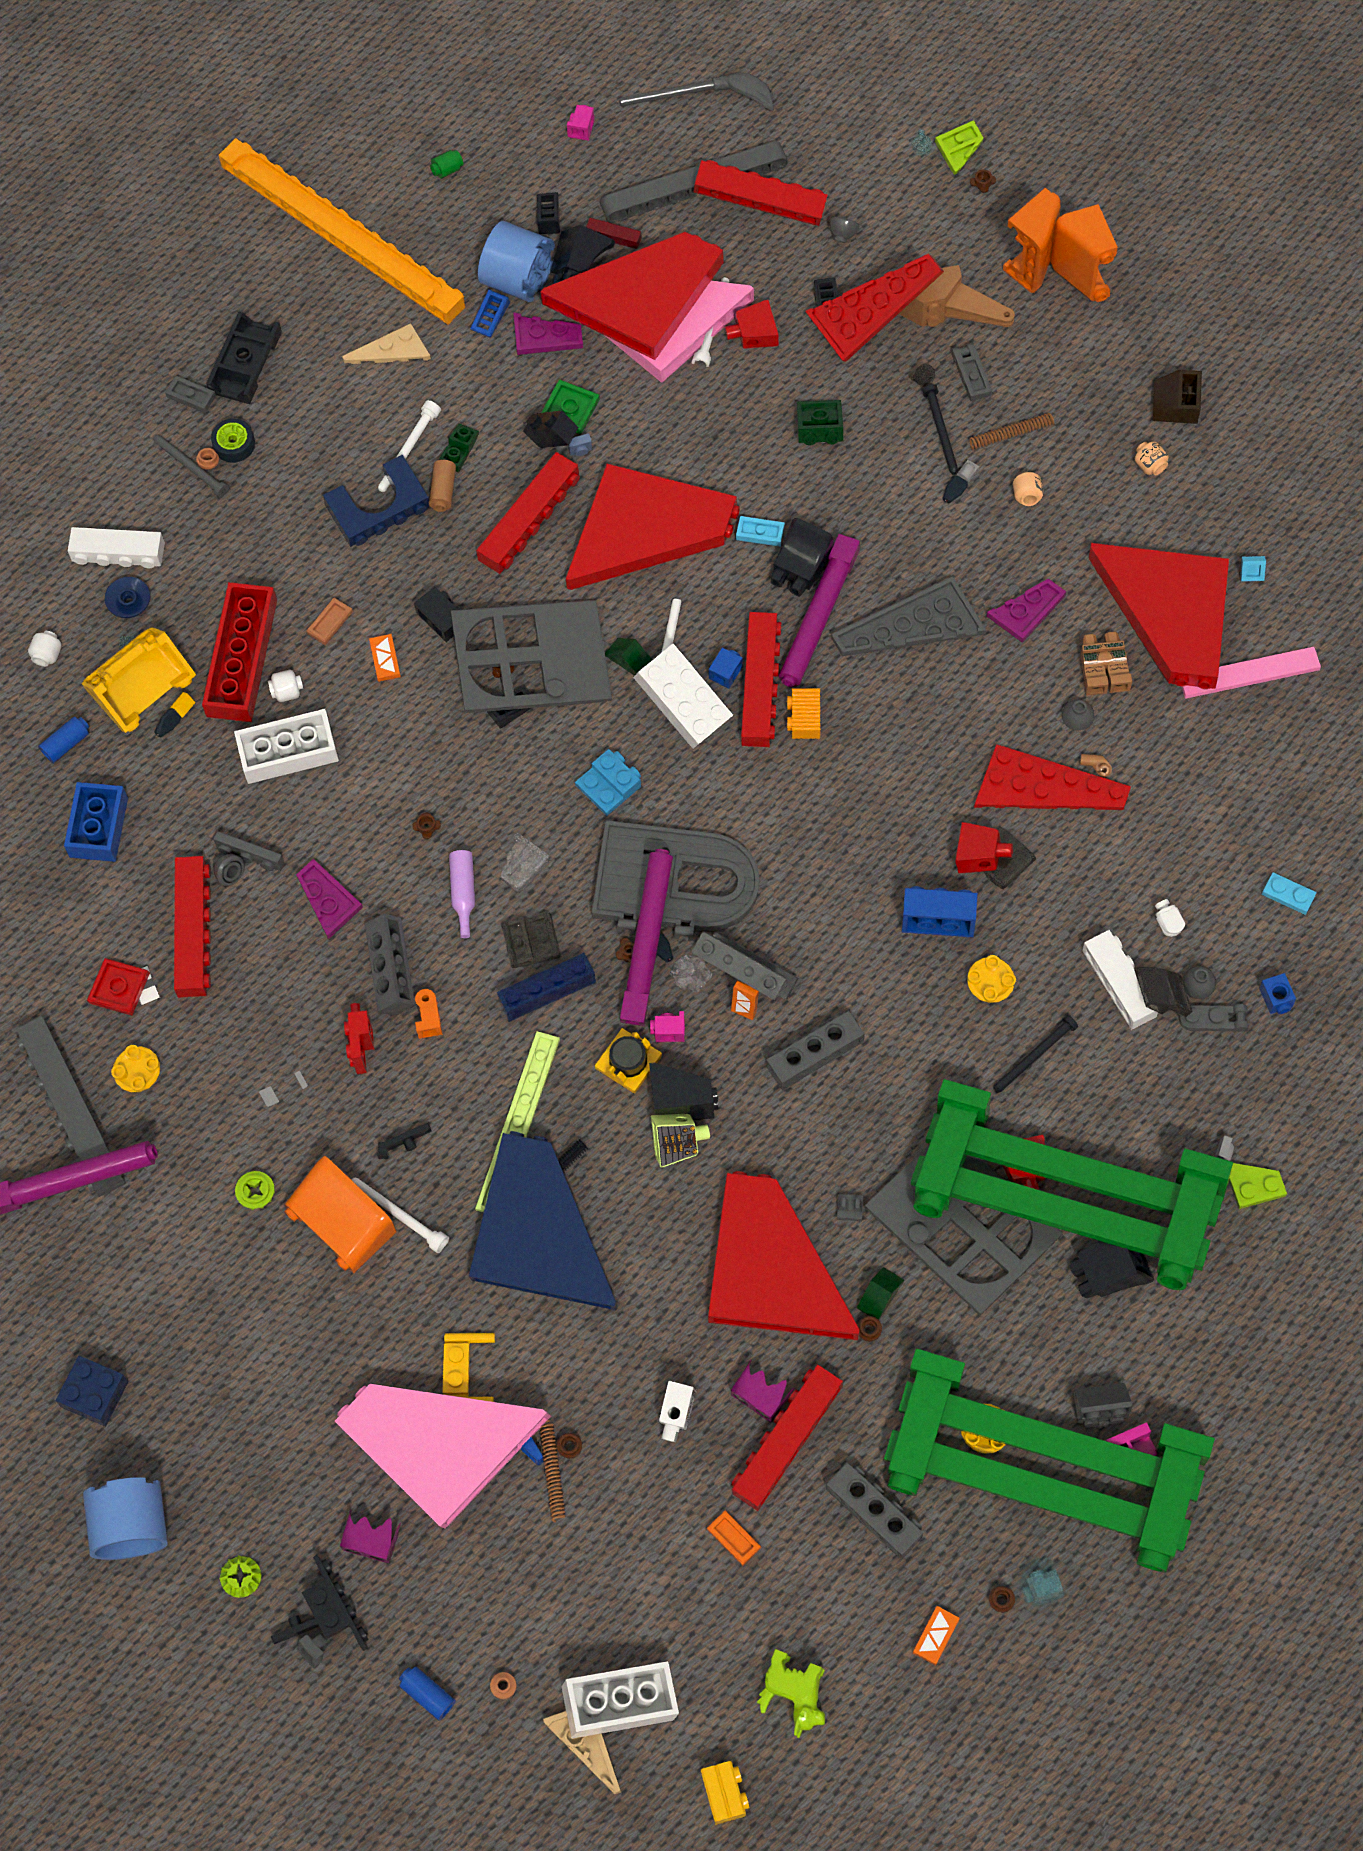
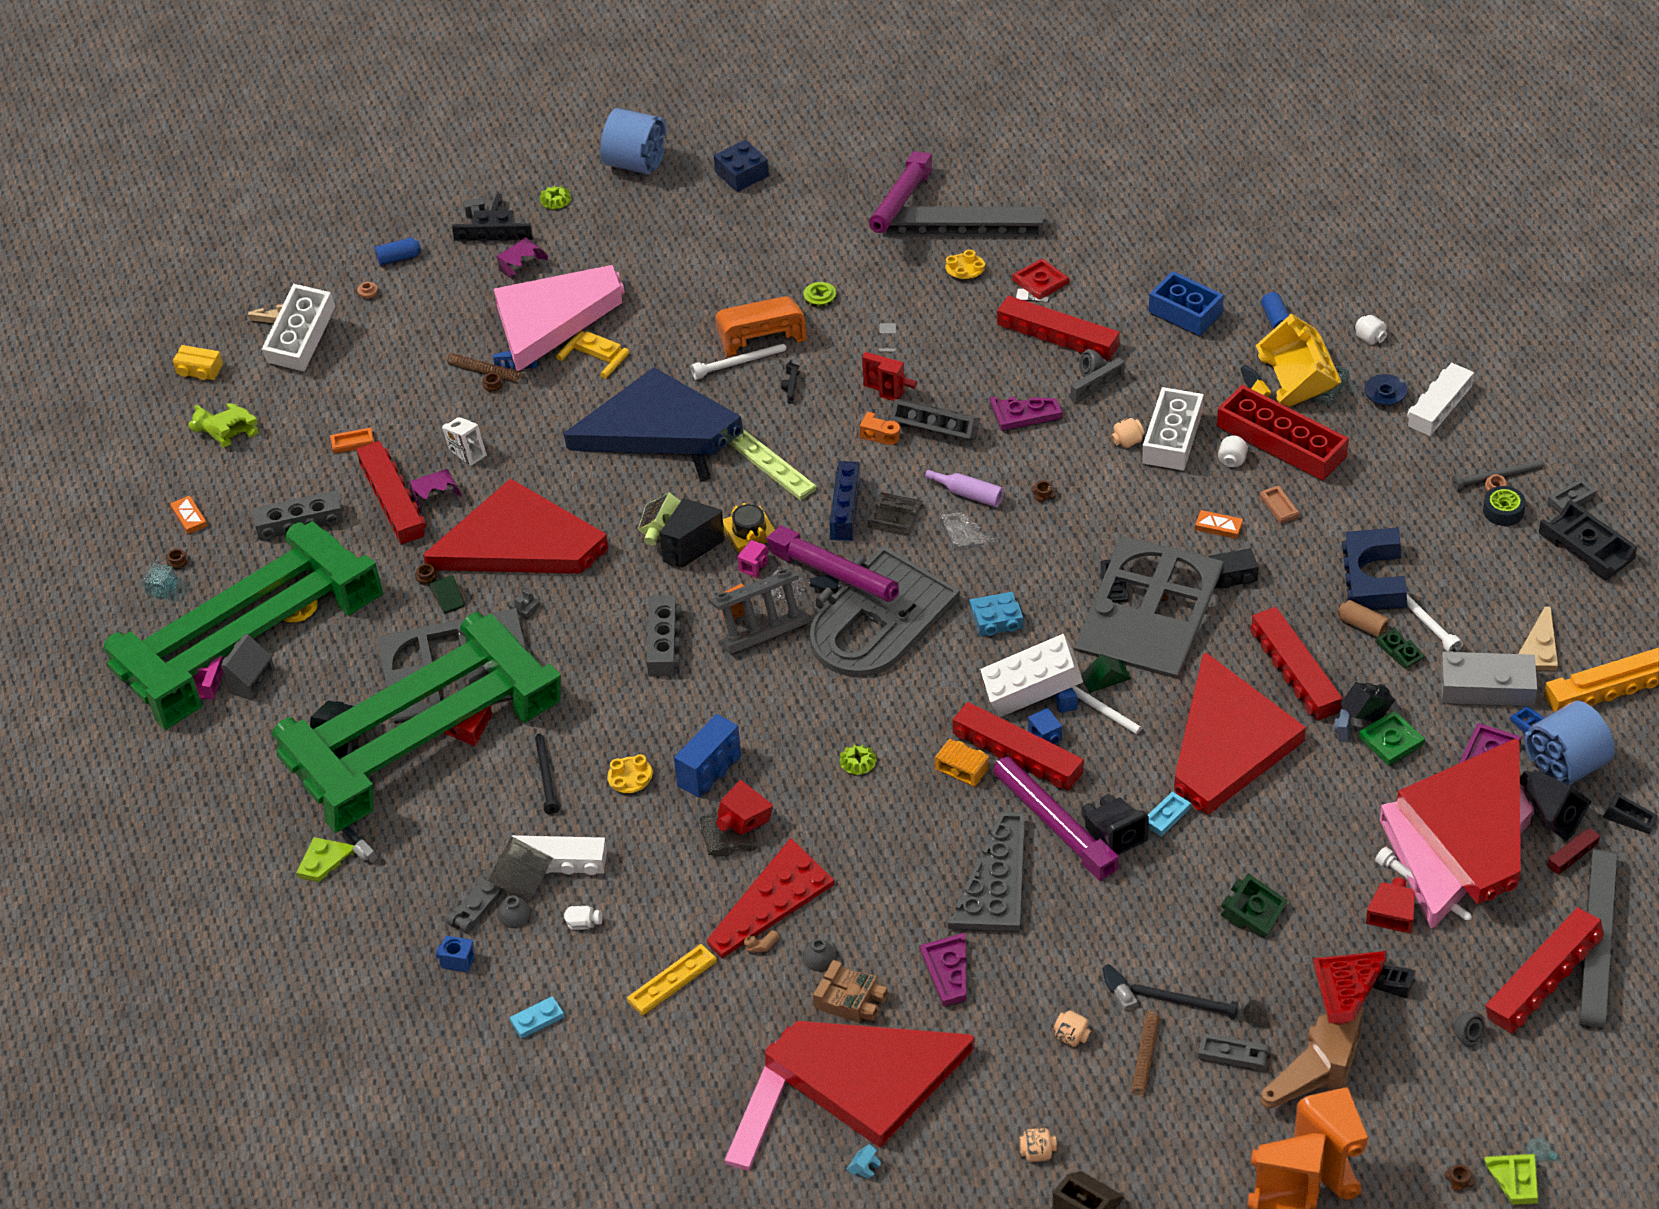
camera: 120 degrees right, 20 degrees down
(309, 787) = (1128, 432): none -> light nougat head
(461, 362) = (1488, 679): none -> light grey brick
(850, 812) = (850, 763): none -> lime gear
(1179, 812) = (671, 979): none -> yellow tile

